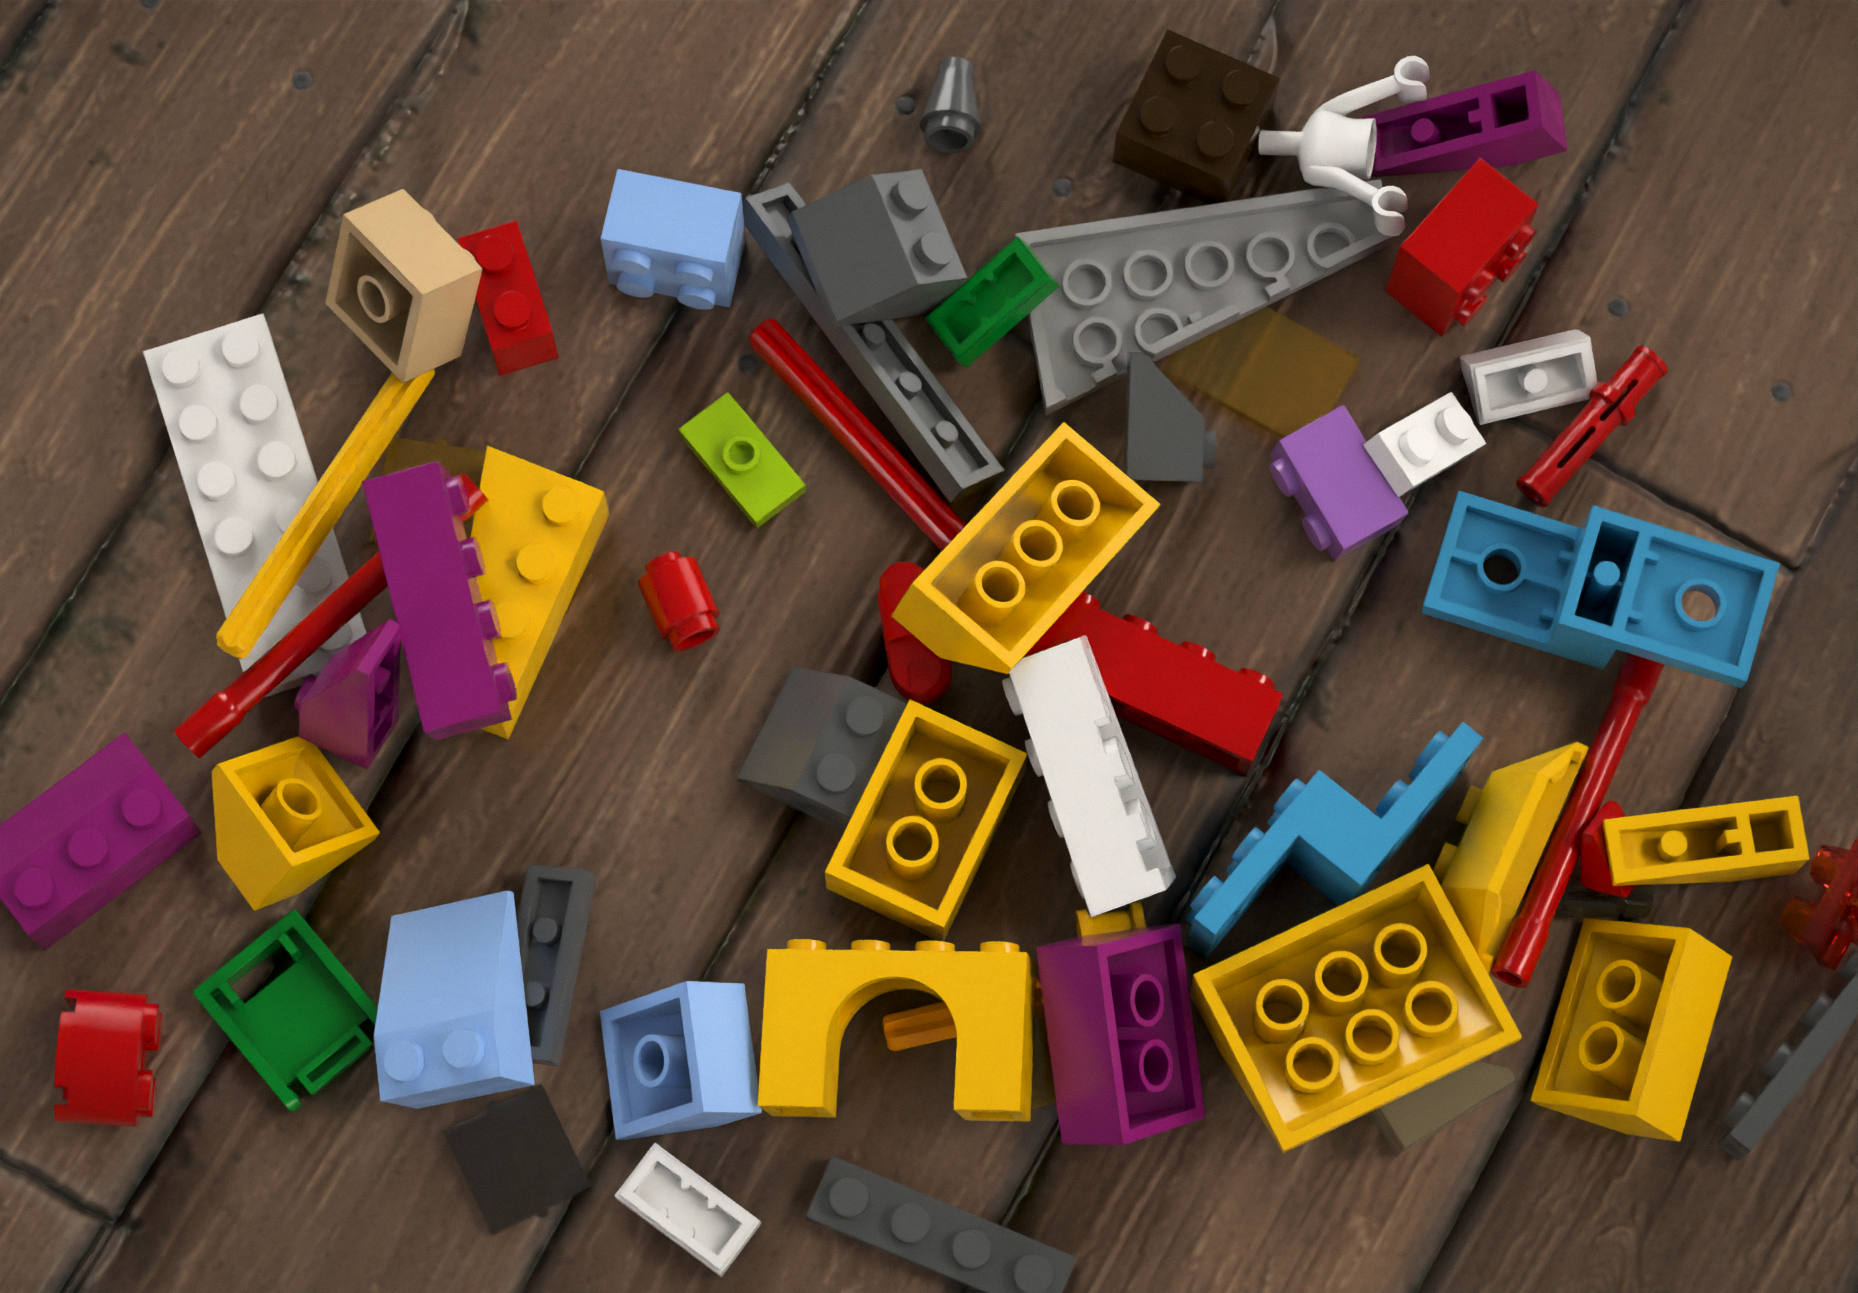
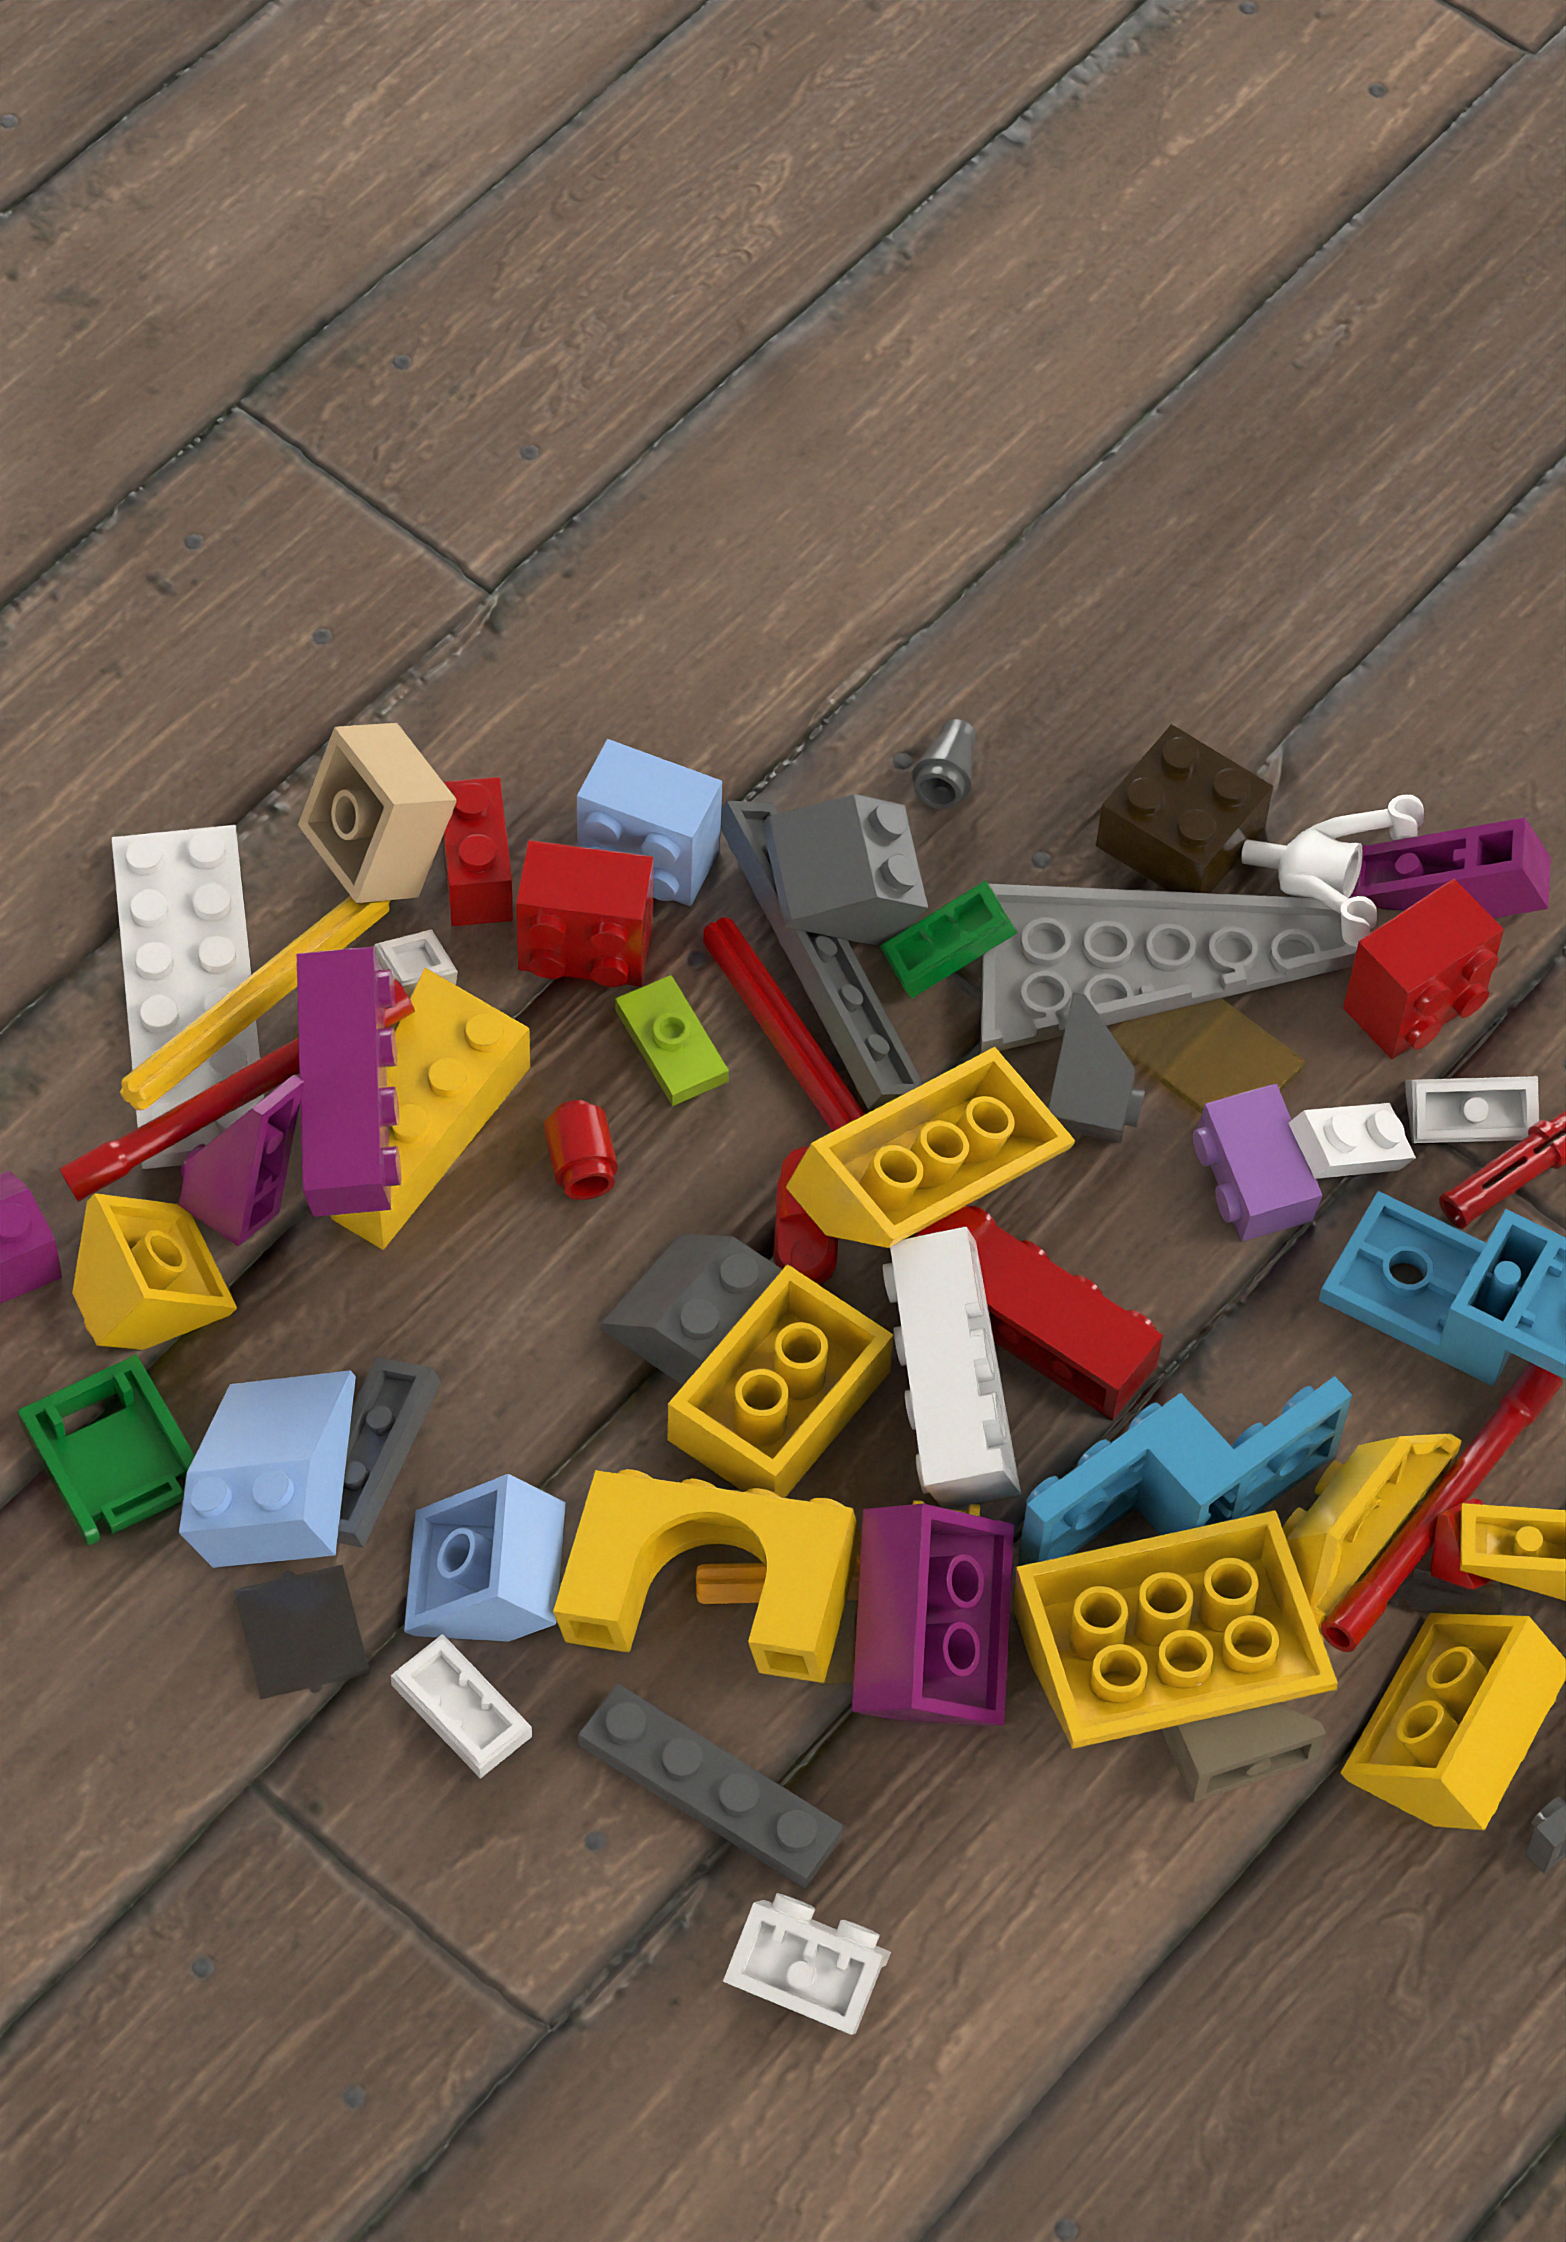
camera: 10 degrees right, 15 degrees down
(471, 427) = (413, 953): none -> white tile
(631, 352) = (584, 913): none -> red brick

